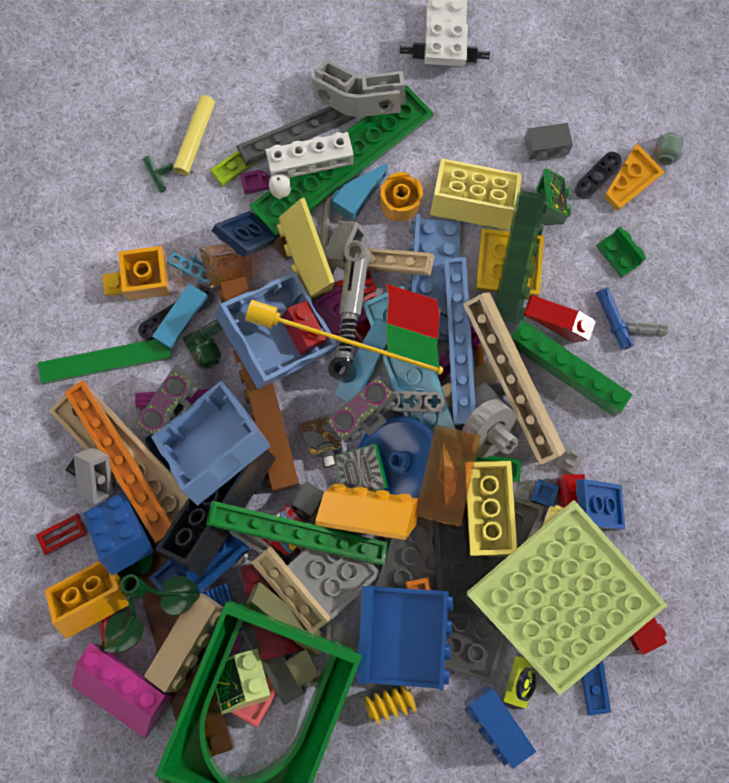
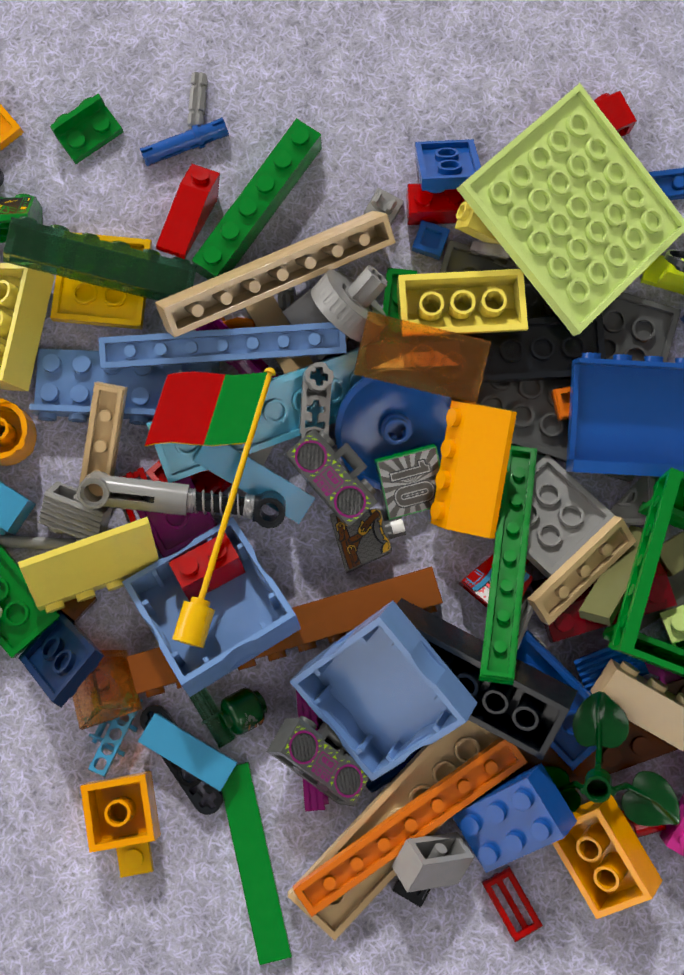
camera: 85 degrees left, 5 degrees up
(307, 500) = (453, 554): dark grey brick -> none

